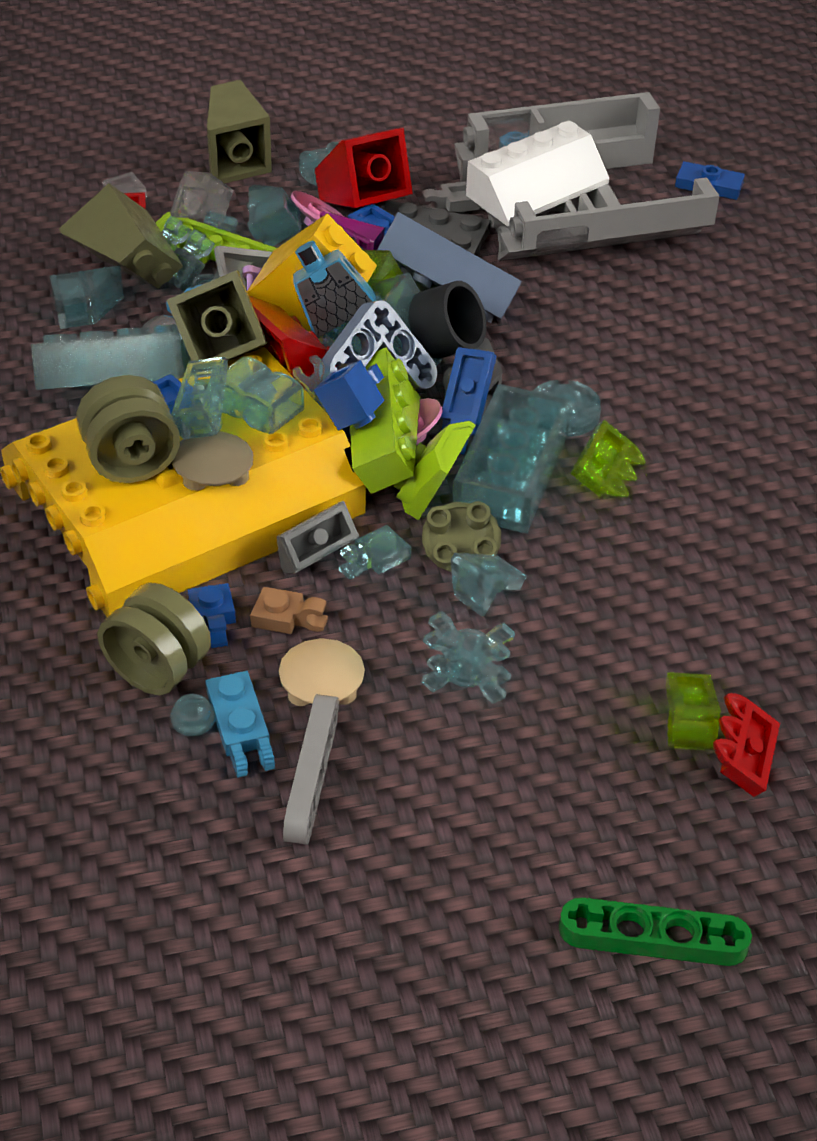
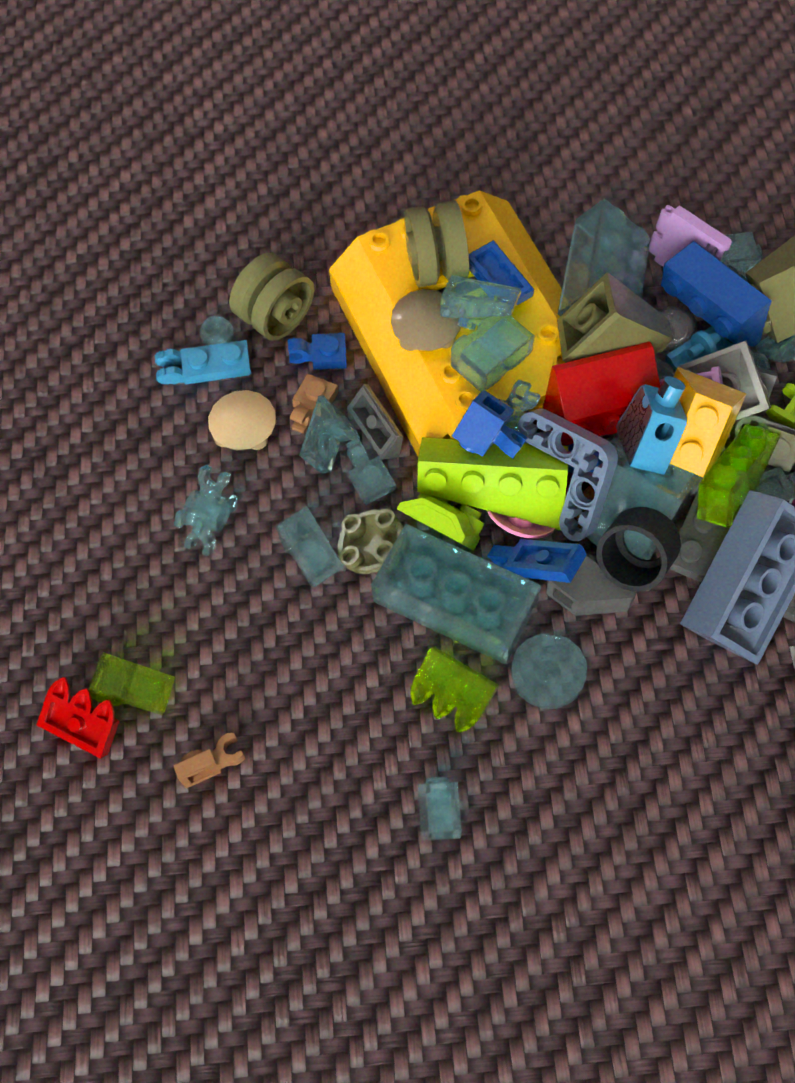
camera: 105 degrees right, 20 degrees up
(69, 307) = (678, 229): none -> lavender plate
(141, 284) = (716, 294): none -> blue slope
(311, 770) = (144, 401): light grey beam -> none
(322, 579) = (324, 434): none -> clear light blue slope
(730, 455) = (439, 809): none -> clear light blue brick
(757, 631) = (202, 765): none -> medium nougat plate

